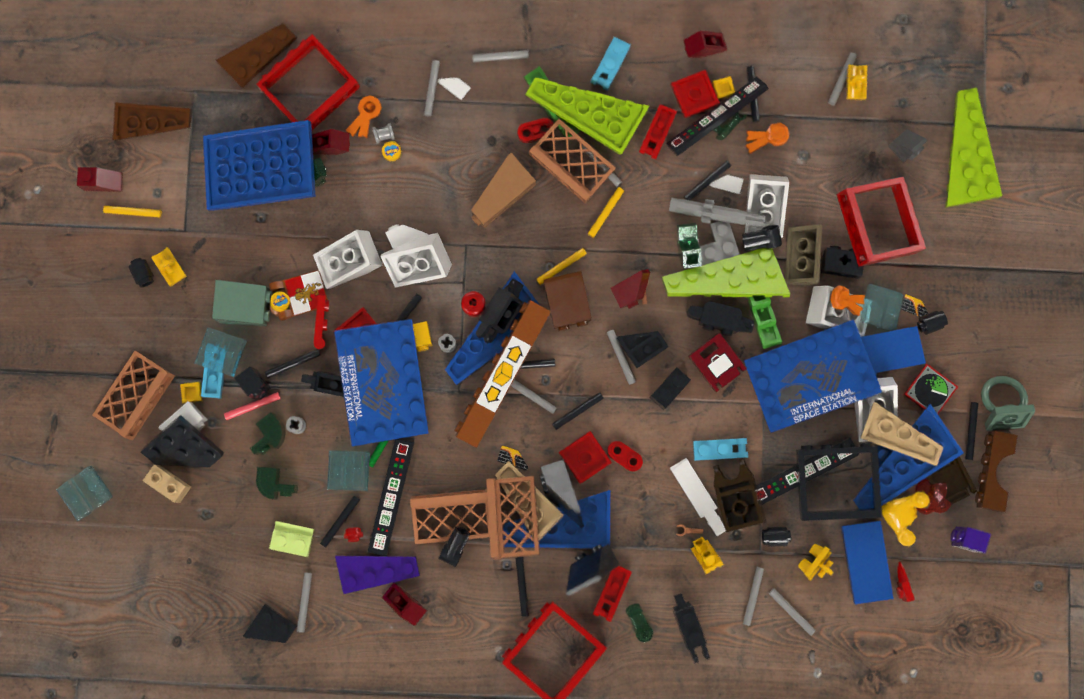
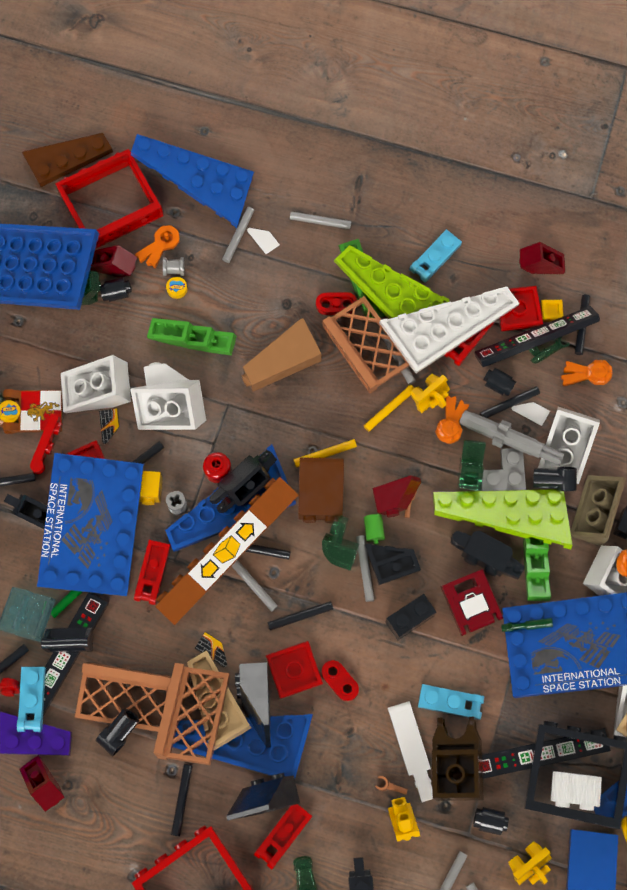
camera: 15 degrees right, 10 degrees down
(339, 167) = (115, 289): none -> black brick
(368, 288) = (109, 423): none -> sticker
(375, 538) = (31, 698): none -> medium azure plate
(388, 44) = (205, 179): none -> blue wing
(391, 483) = (68, 640): none -> black tile
(417, 192) = (191, 337): none -> bright green slope
(444, 407) = (152, 571): none -> red plate
(596, 348) = (339, 550): none -> clear green brick
(620, 321) = (374, 528): none -> bright green piece
(630, 133) = (440, 328): none -> white wing
(641, 191) = (432, 395): none -> yellow hips
(661, 218) = (449, 429): none -> orange piece
(694, 165) = (499, 381): none -> black brick
(769, 370) = (532, 624): none -> dark green piece
(840, 495) = (576, 789): none -> white brick

